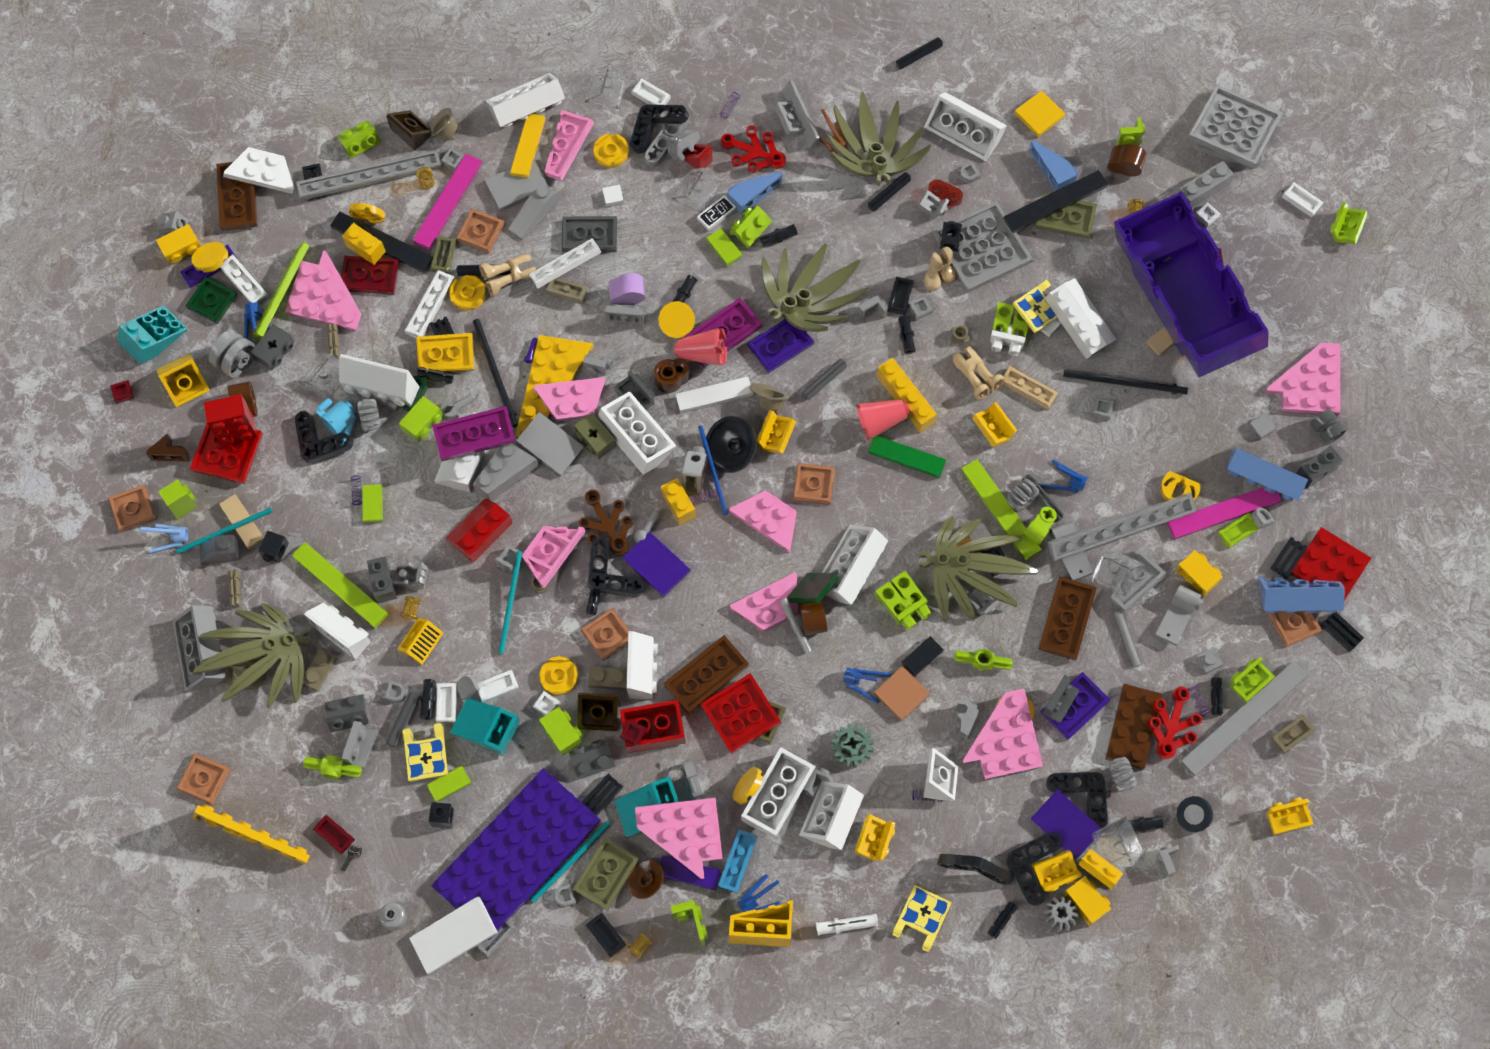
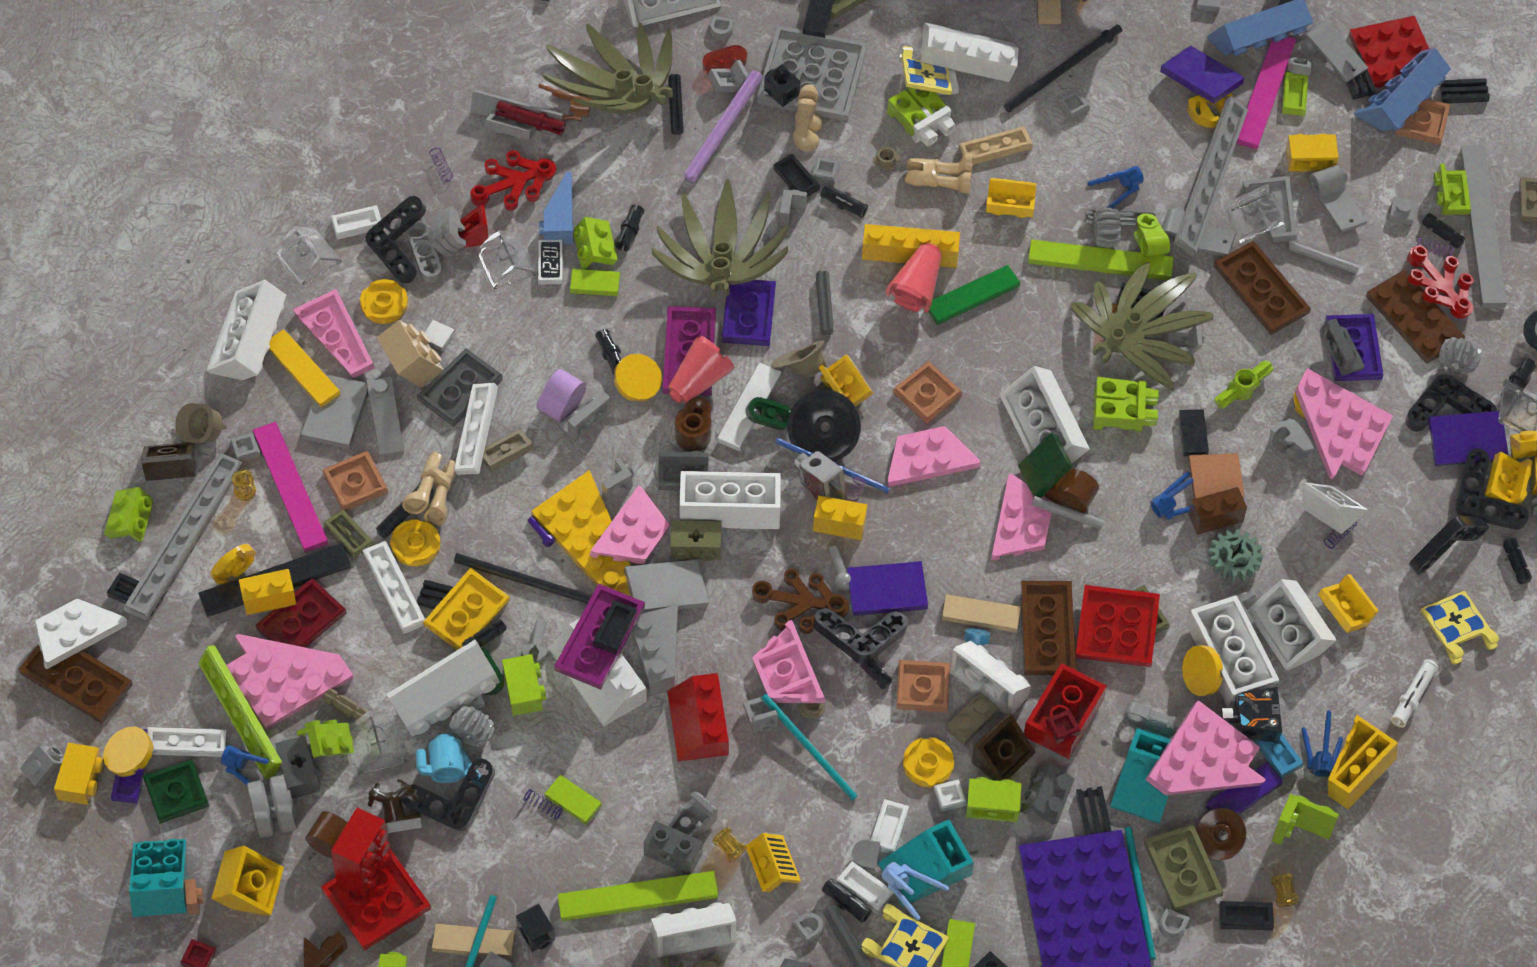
camera: 55 degrees left, 10 degrees down
(151, 359) = (194, 896): none -> nougat plate
(279, 421) = (393, 808): none -> dark brown piece
(297, 348) = (328, 738): none -> lime bracket
(459, 715) = (898, 878): none -> light blue plant
(482, 436) = (615, 627): none -> black tile
(579, 190) = (410, 353): none -> tan brick
(664, 638) = (977, 636): none -> dark azure tile
(685, 629) = (981, 613): none -> tan tile
(714, 409) = (768, 413): none -> dark green plate
(742, 839) = (1256, 714): none -> black torso
(803, 130) = (530, 118): none -> dark red pin
(874, 711) = (1217, 510): none -> reddish brown brick
(895, 228) = (723, 126): none -> lavender axle
(1195, 465) = (1202, 74): none -> dark purple tile
(1292, 529) = (1334, 49): none -> light grey door

